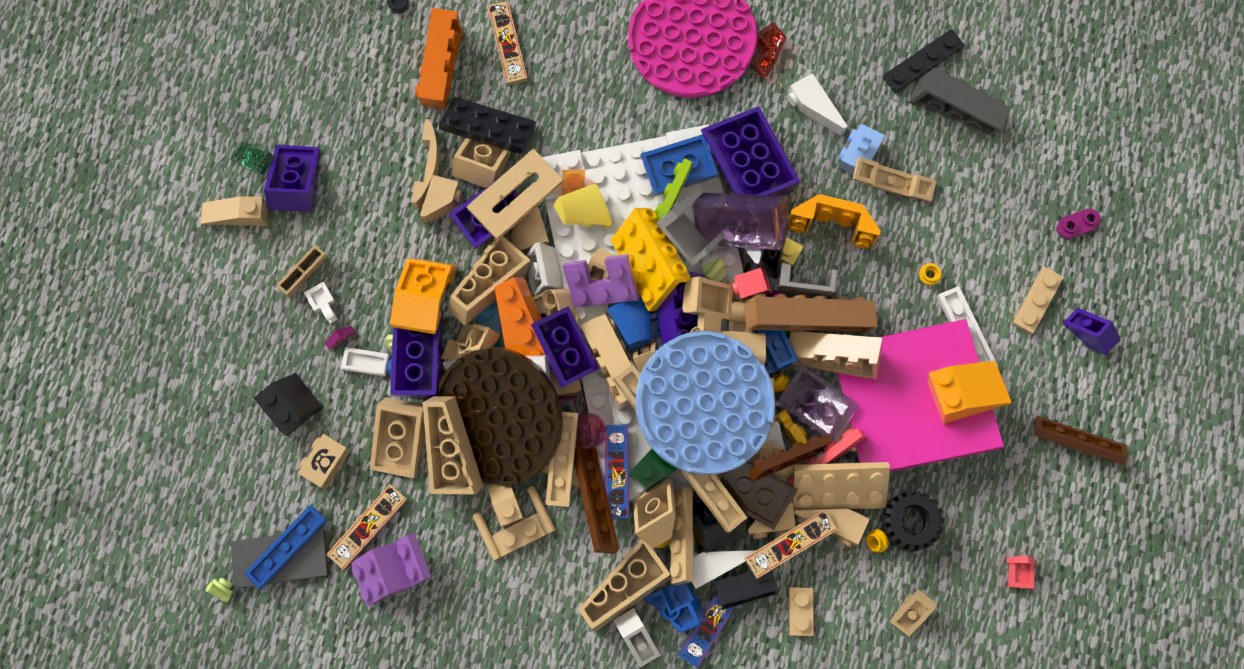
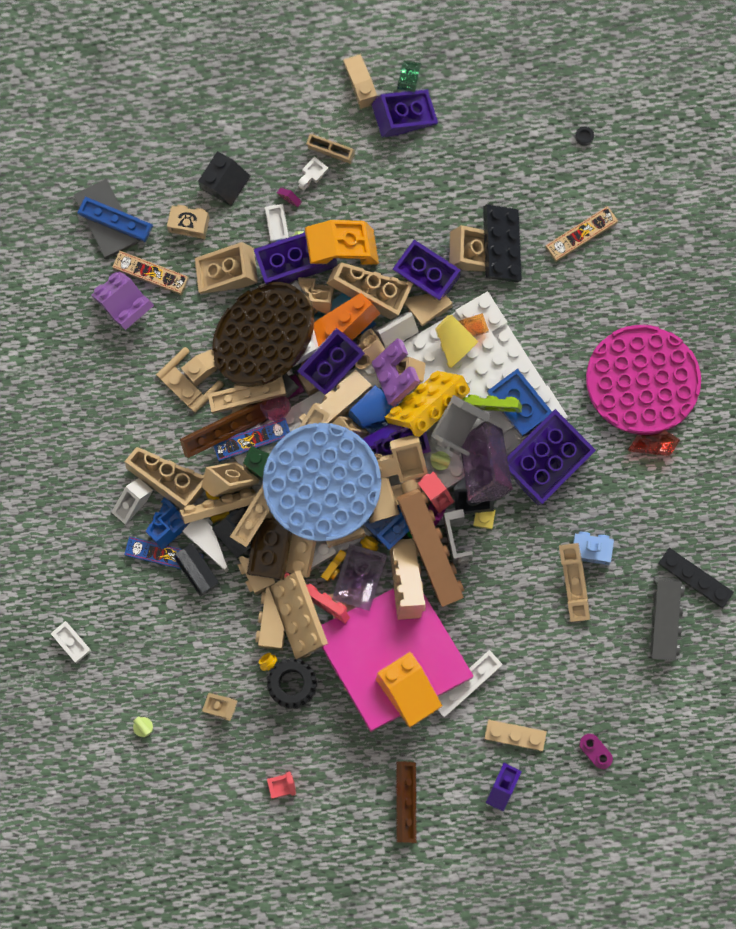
camera: 75 degrees right, 0 degrees up
(220, 589) = (69, 185): yellowish green plate -> none
(420, 188) = (428, 214): tan slope -> none
(439, 58) = (544, 185): orange wedge -> none
(440, 198) = (427, 229): tan slope -> none
(449, 452) = (226, 307): tan wedge -> none
(500, 223) = (442, 293): tan piece -> none
(785, 459) = (309, 569): reddish brown plate -> none
(790, 544) = (240, 591): tile -> none
(801, 612) = (193, 620): tan plate -> none
(814, 102) = (622, 494): white slope -> none
(840, 211) = (517, 519): light orange slope -> none
(932, 268) = (508, 633): yellow plate -> none

